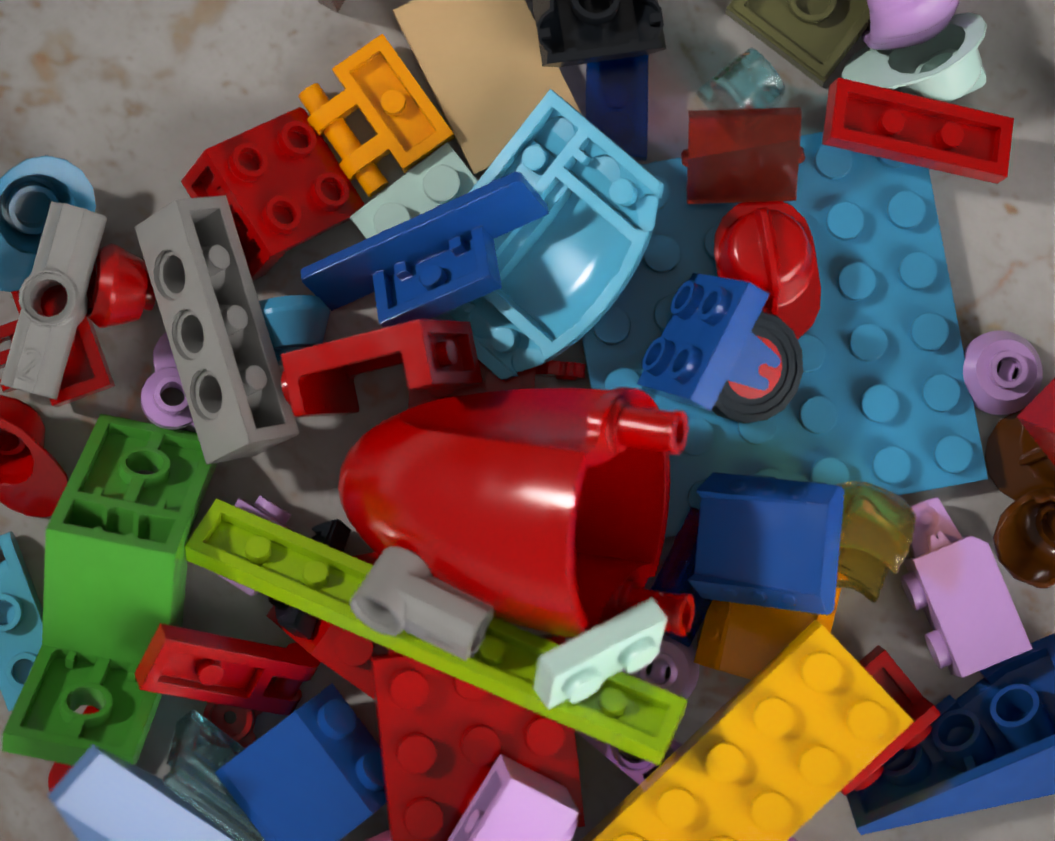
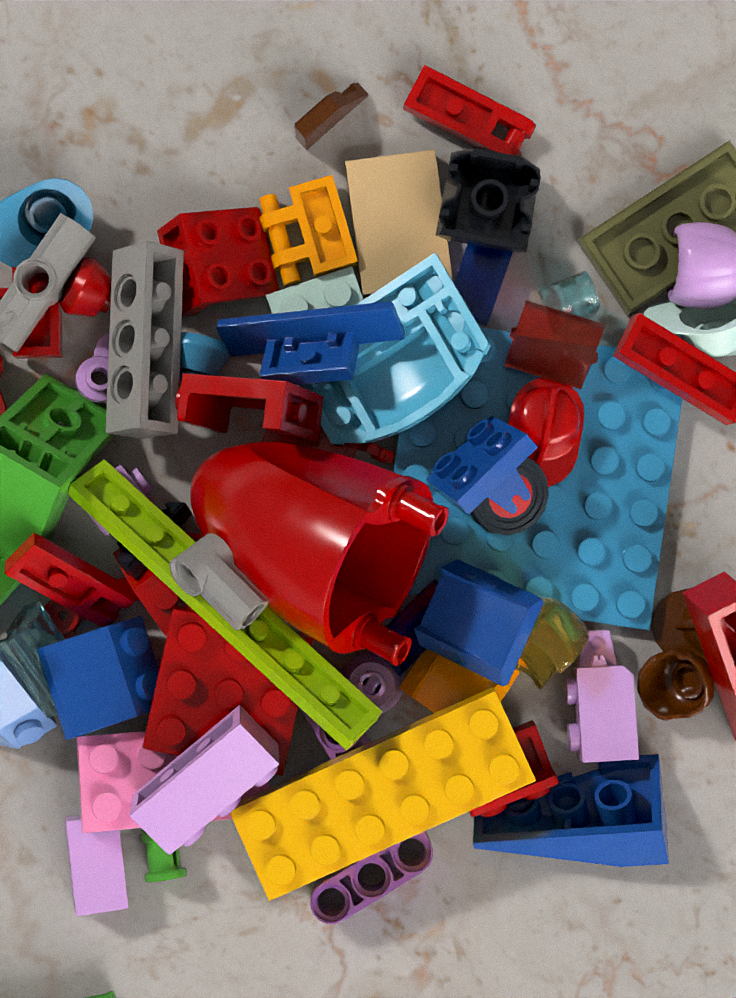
camera: 15 degrees right, 0 degrees up
(586, 661) = (317, 660): light aqua plate -> none
(996, 390) = (676, 570): lavender cone -> none

